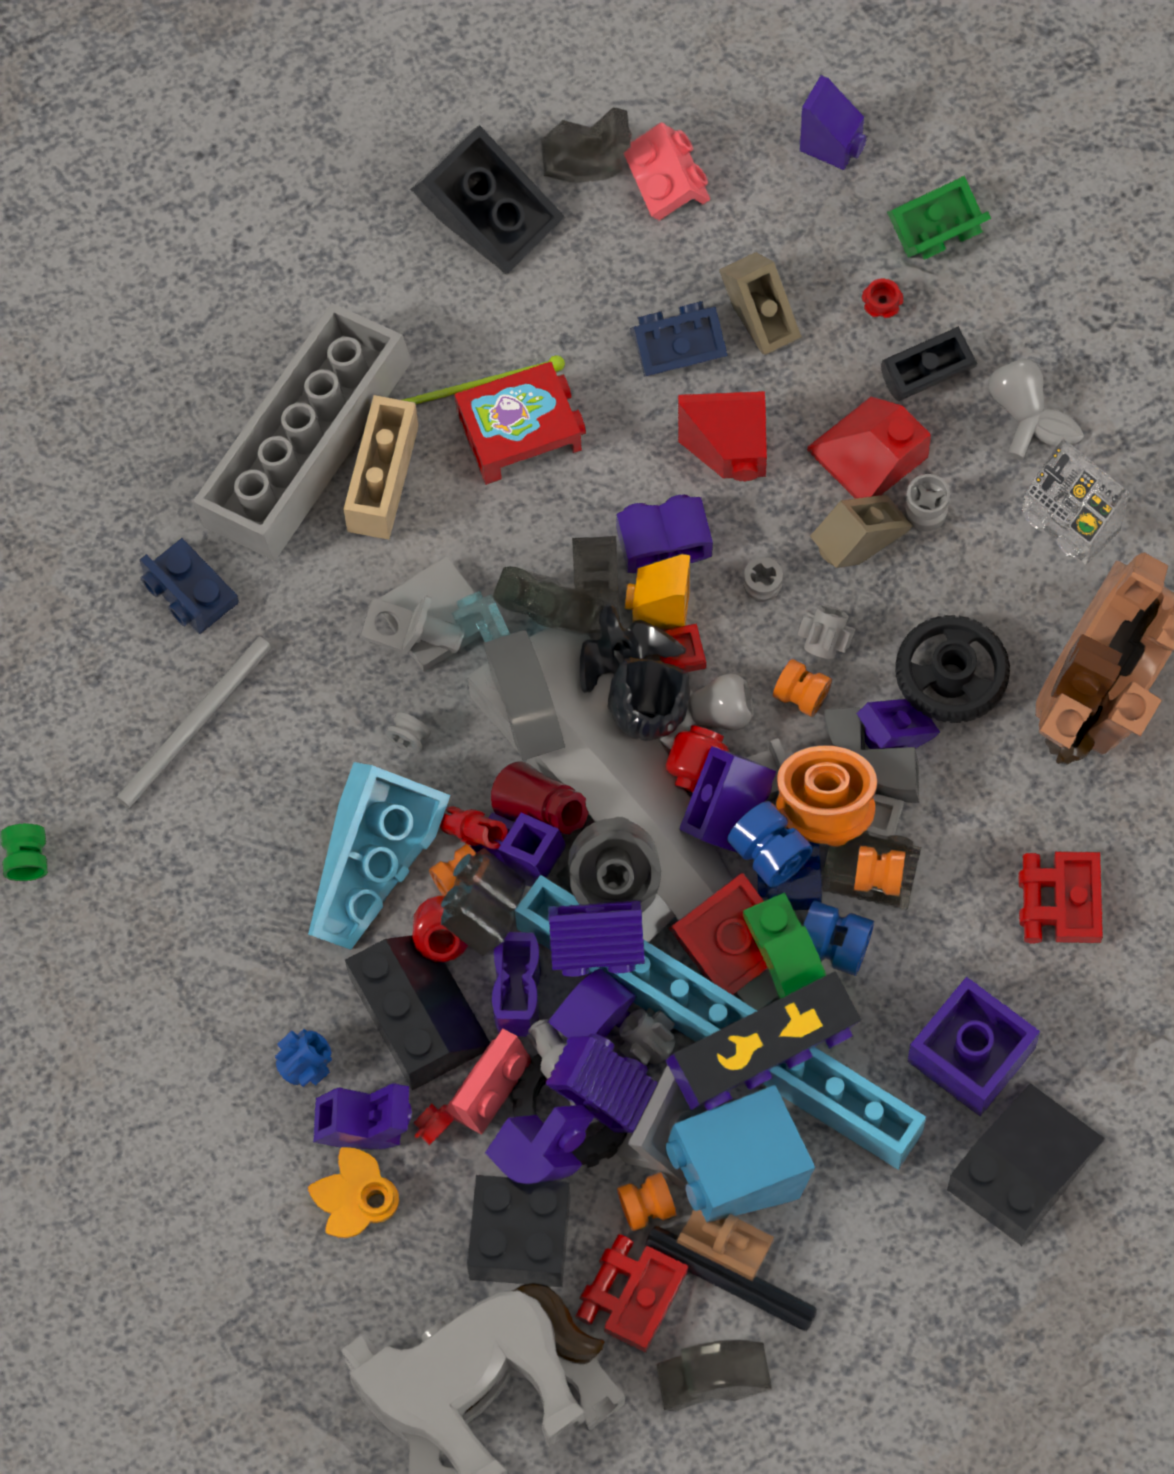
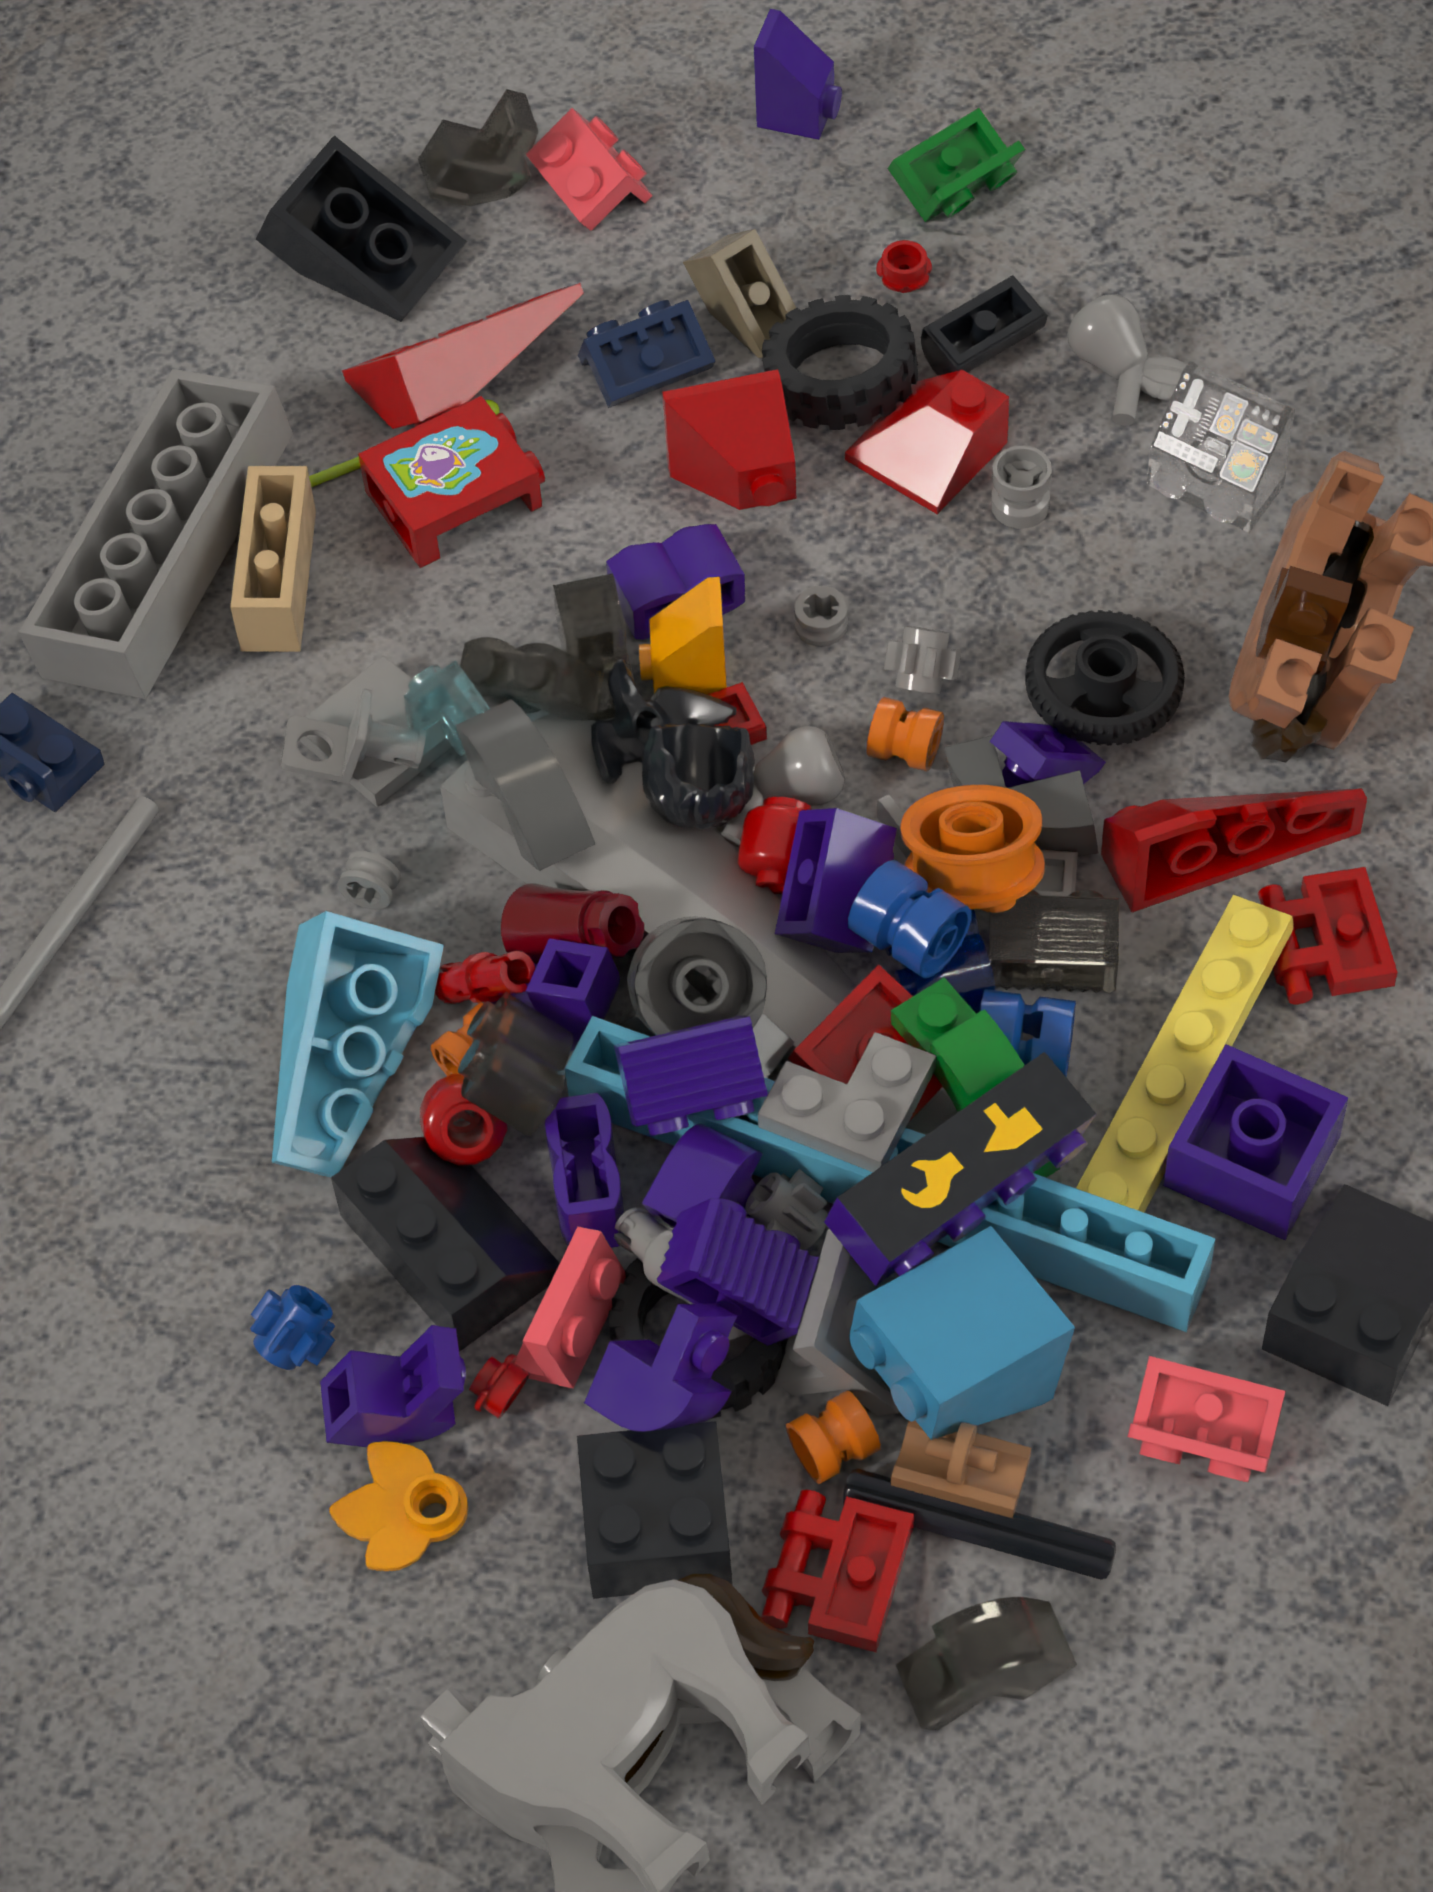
camera: 10 degrees left, 10 degrees down
(528, 331) = (450, 370): none -> wedge
(706, 986) = (855, 1119): none -> light grey plate
(813, 340) = (834, 324): none -> black tyre
(859, 530) = (936, 534): dark tan slope -> none
(879, 870) = (1077, 928): orange wheel -> none
(895, 1236) = (1207, 1417): none -> coral bracket
(940, 972) = (1201, 1022): none -> light yellow plate
(987, 810) = (1201, 841): none -> red wedge

